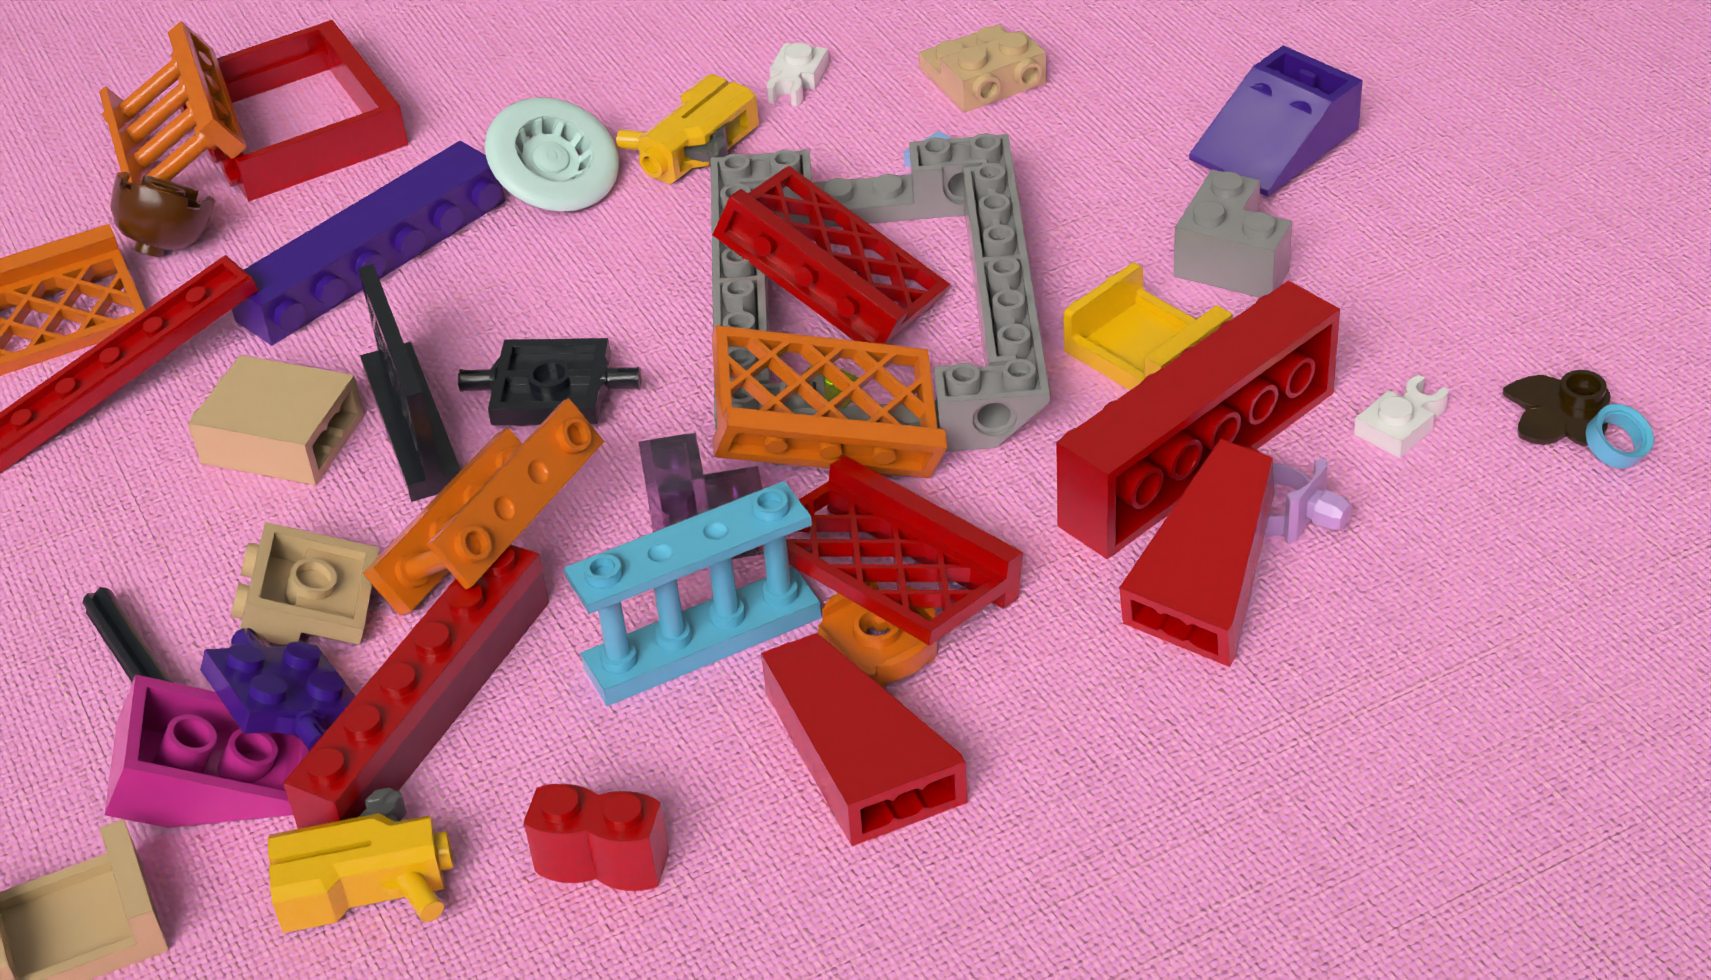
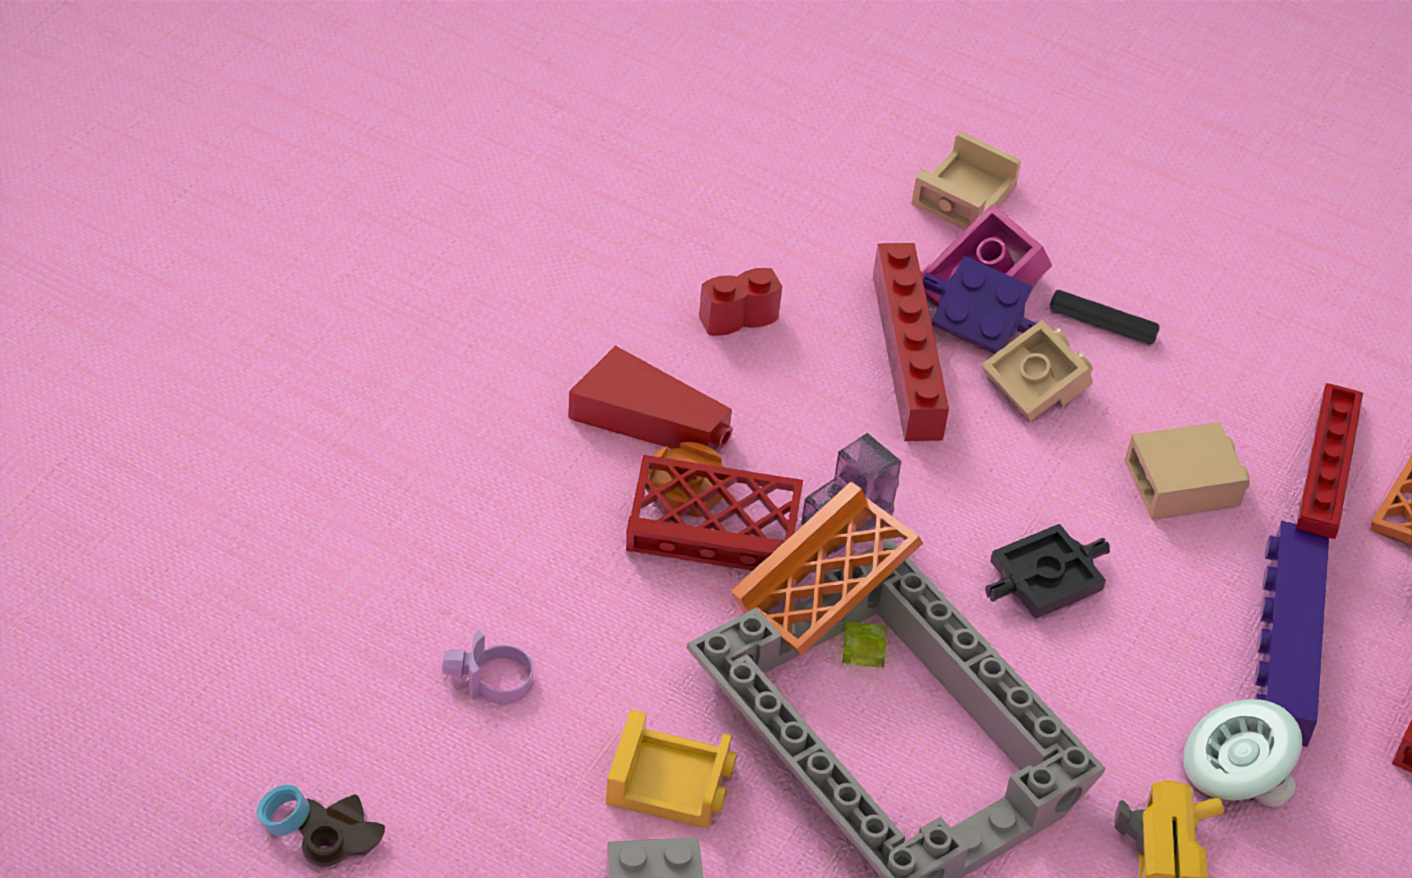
camera: 140 degrees right, 5 degrees up
(357, 863) = (848, 252): yellow piece -> none
(405, 400) = (1107, 509): black fence -> none
(483, 508) = (996, 424): orange fence -> none
(708, 631) = (798, 412): medium azure fence -> none
(824, 277) = (924, 676): red fence -> none
(1204, 557) = (512, 583): red slope -> none
(1235, 385) = (576, 679): red brick -> none
(1399, 421) = (447, 779): white plate -> none

